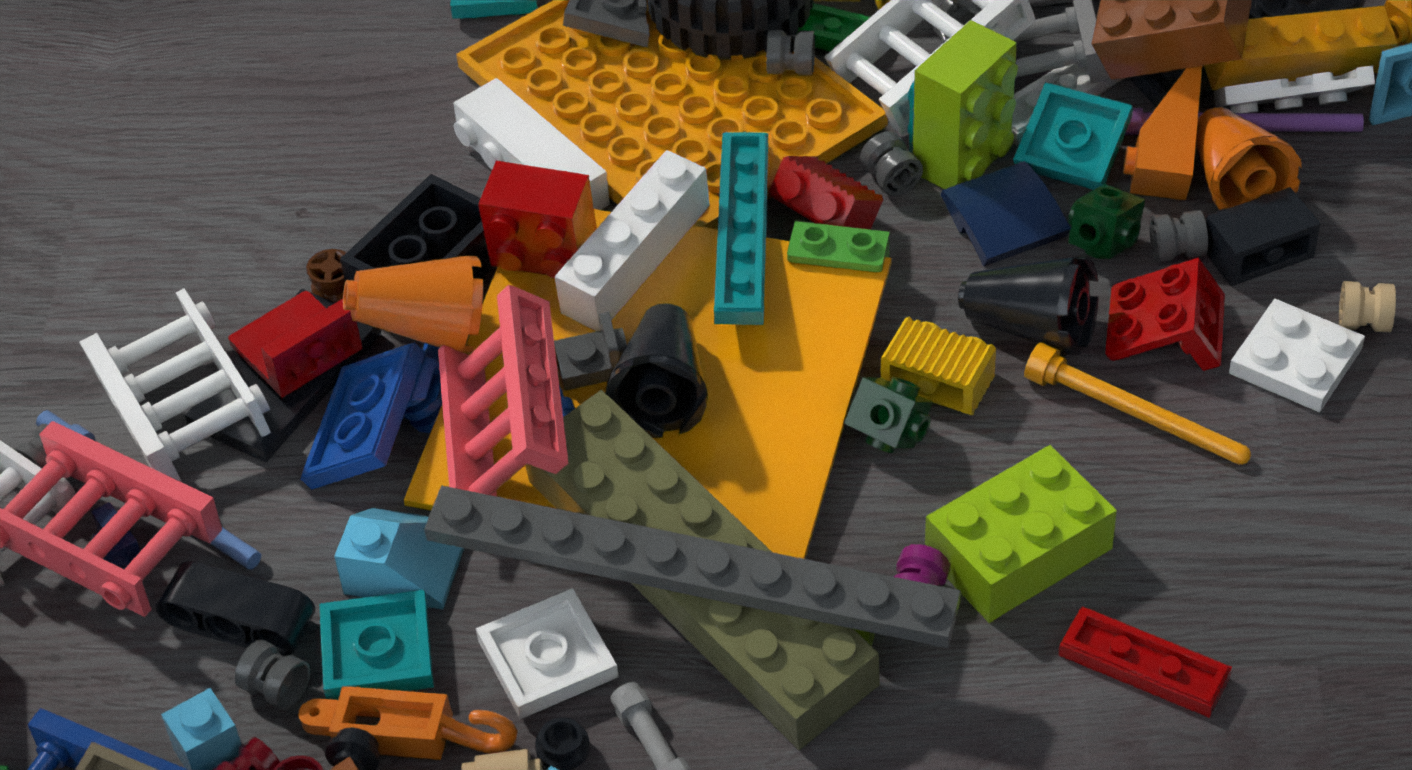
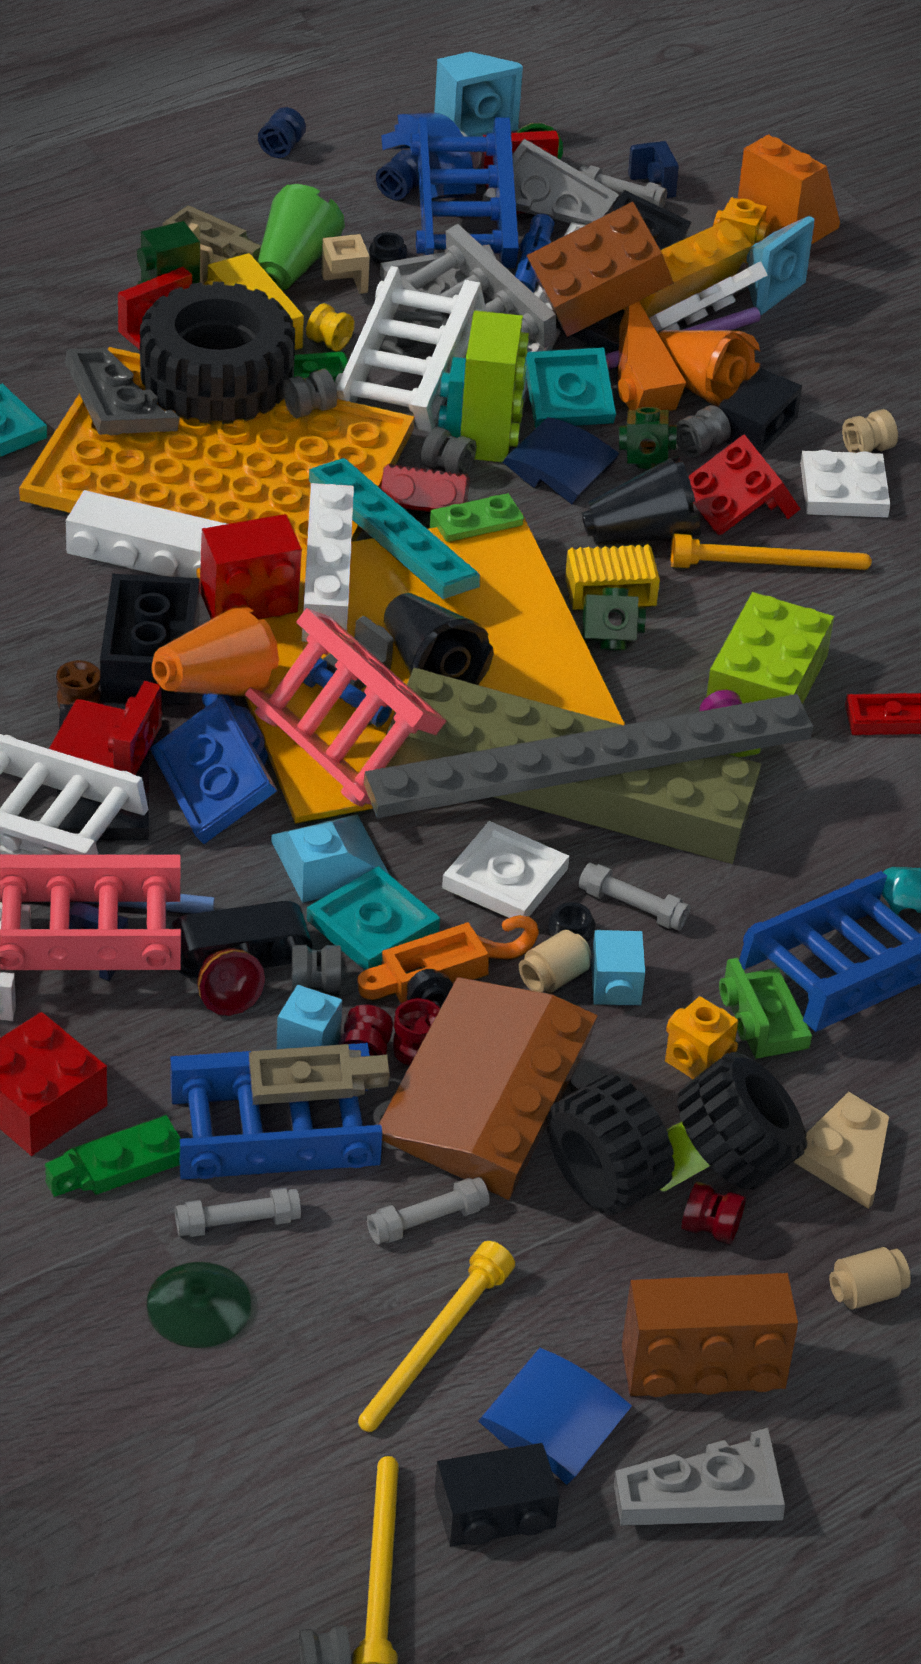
camera: 40 degrees left, 5 degrees down
(180, 650) = (230, 981): none -> dark red piece

